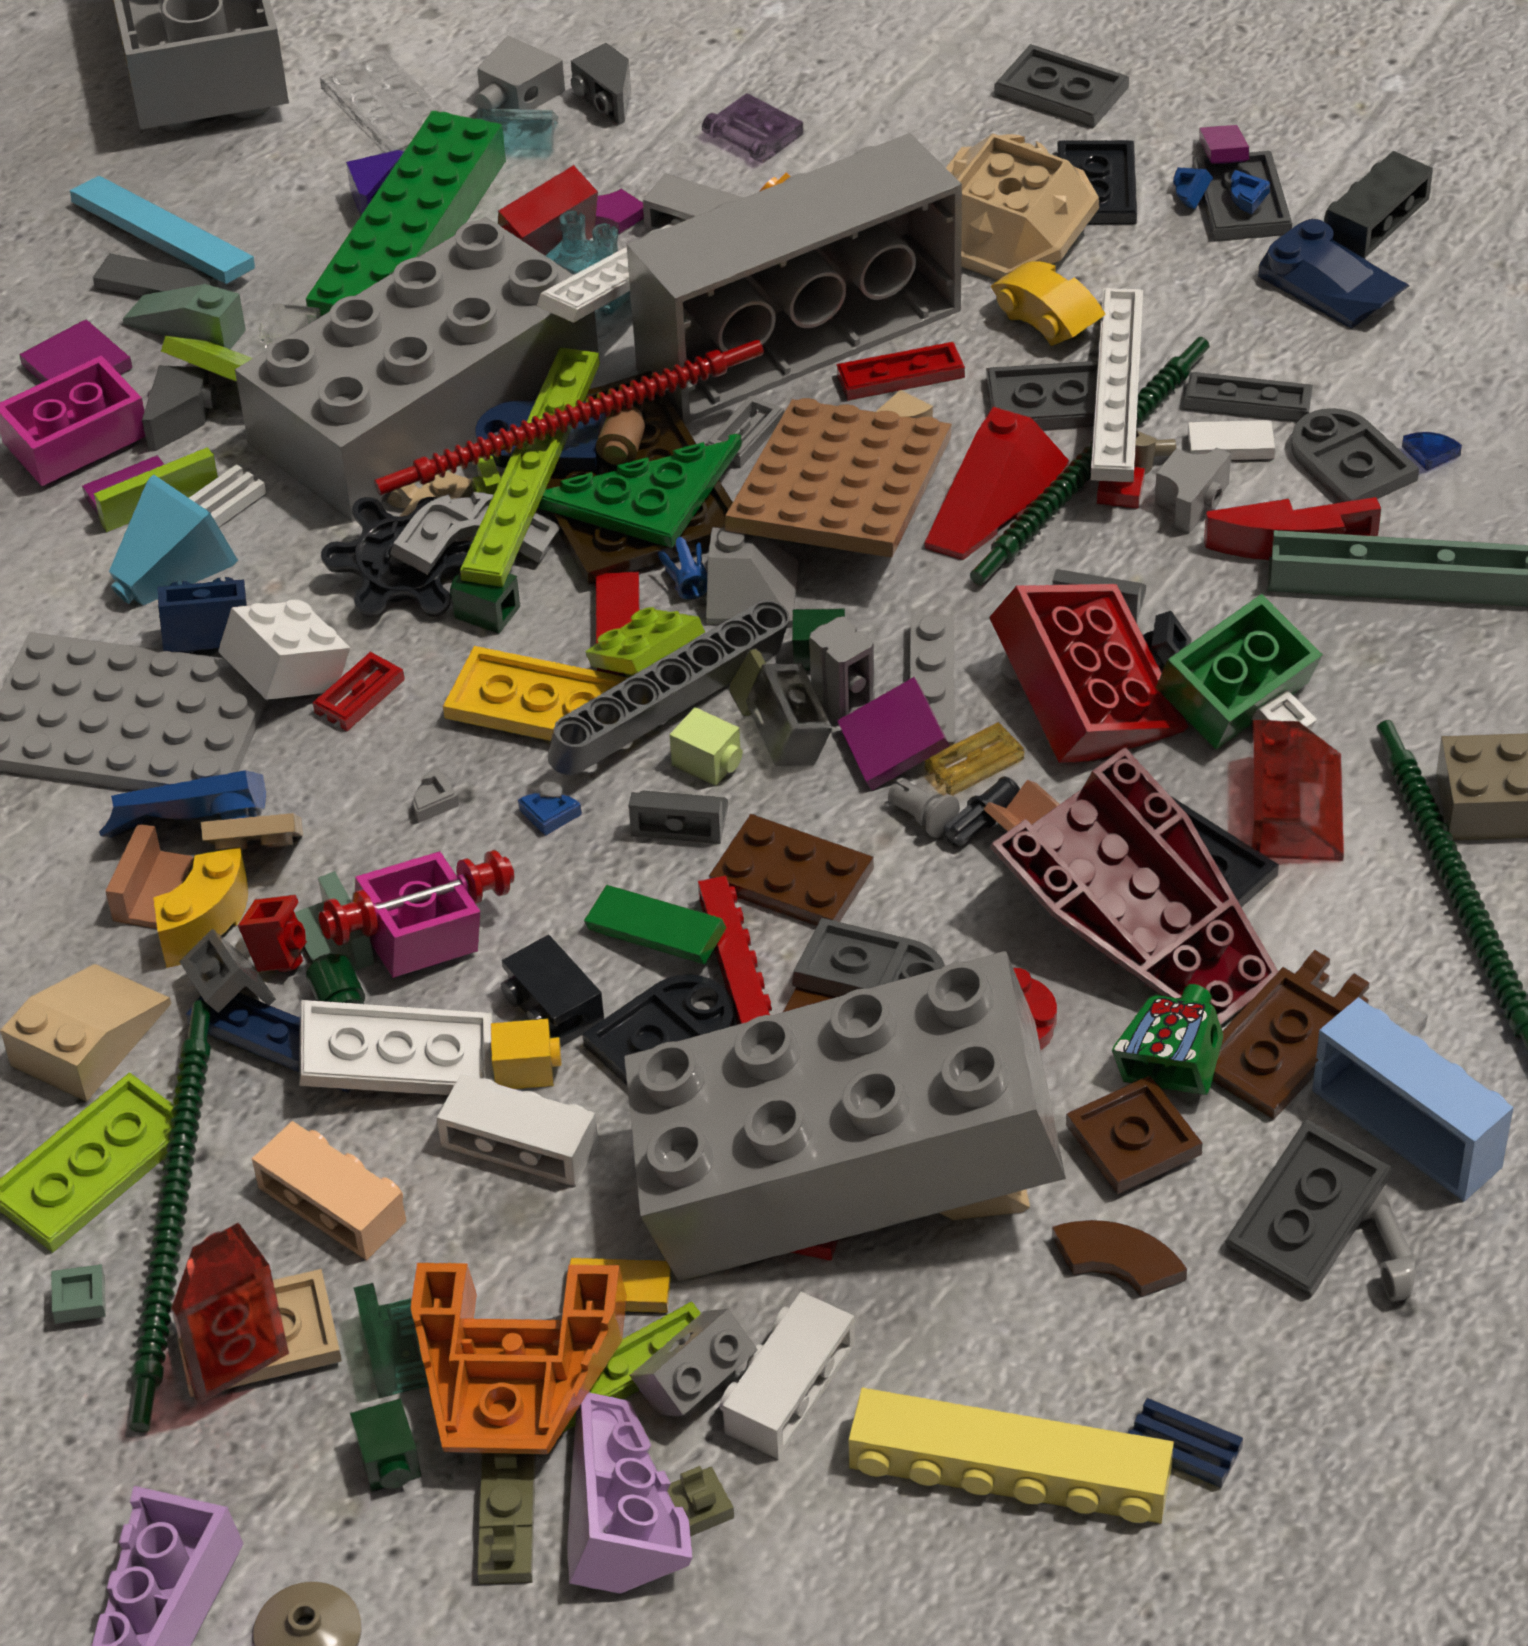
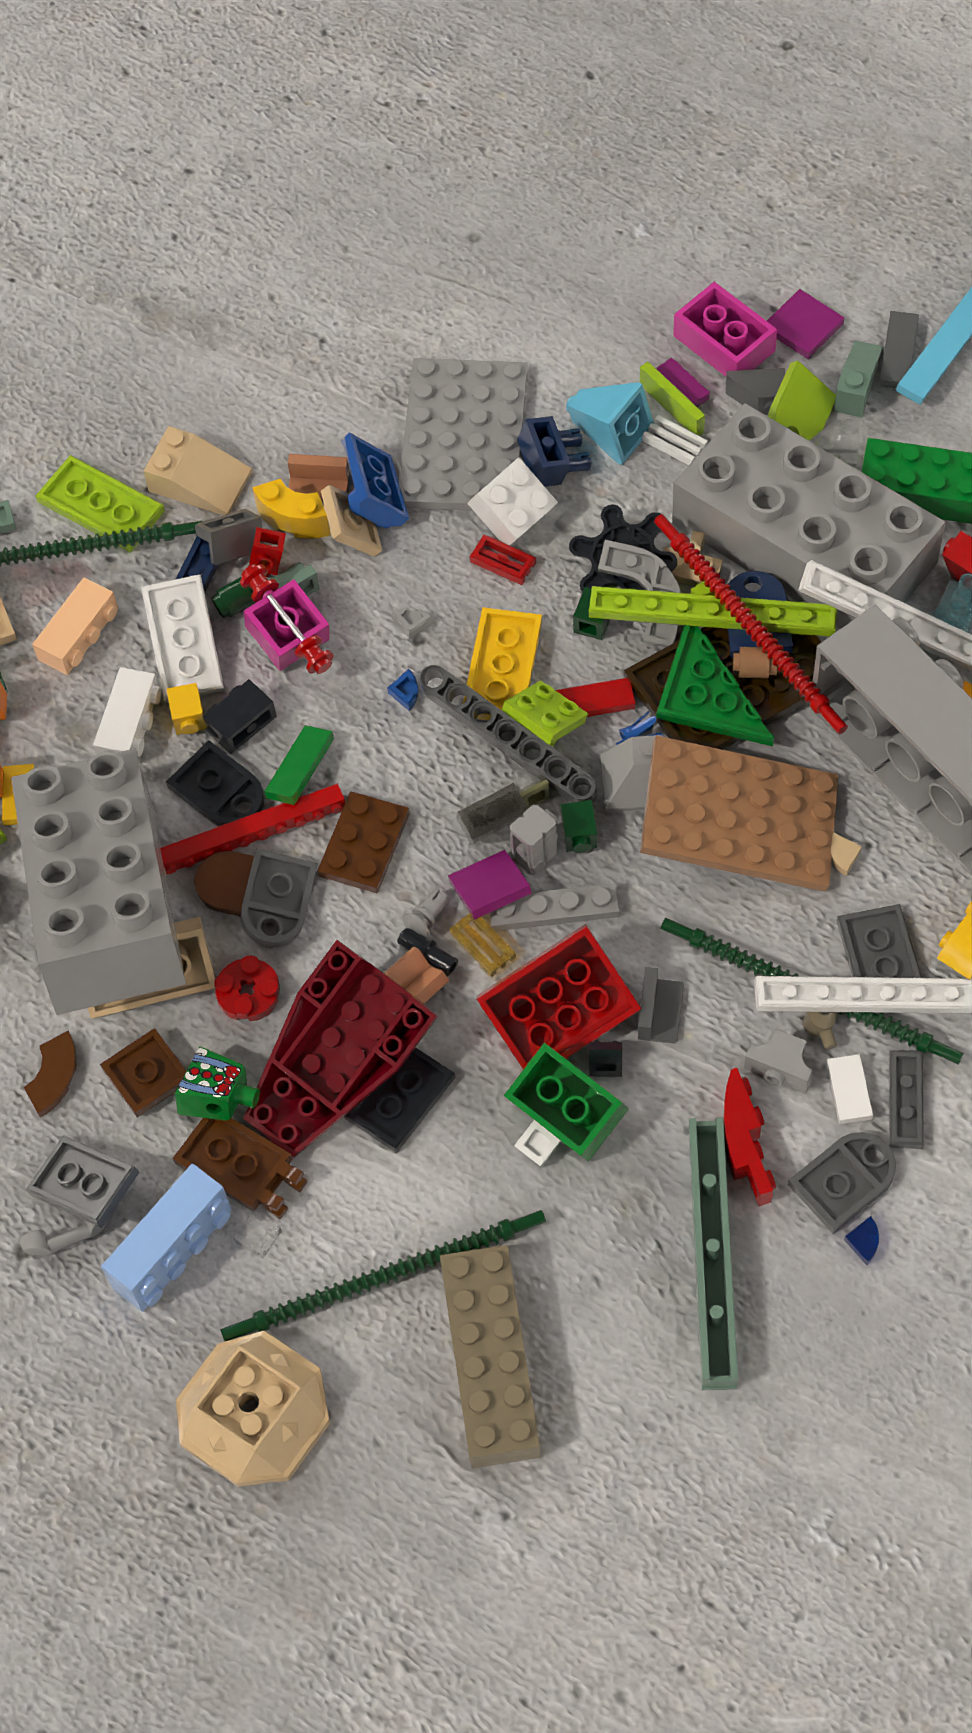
camera: 85 degrees right, 15 degrees up
(677, 816) = (408, 766): dark grey panel -> none
(705, 746) = (465, 770): yellowish green brick -> none
(753, 431) = (802, 755): light grey tile -> none
(900, 371) = (891, 846): red tile -> none
(998, 478) = (769, 924): red wedge -> none
(1122, 493) = (784, 1020): red plate -> none
(1295, 793) = (462, 1154): clear red slope -> none

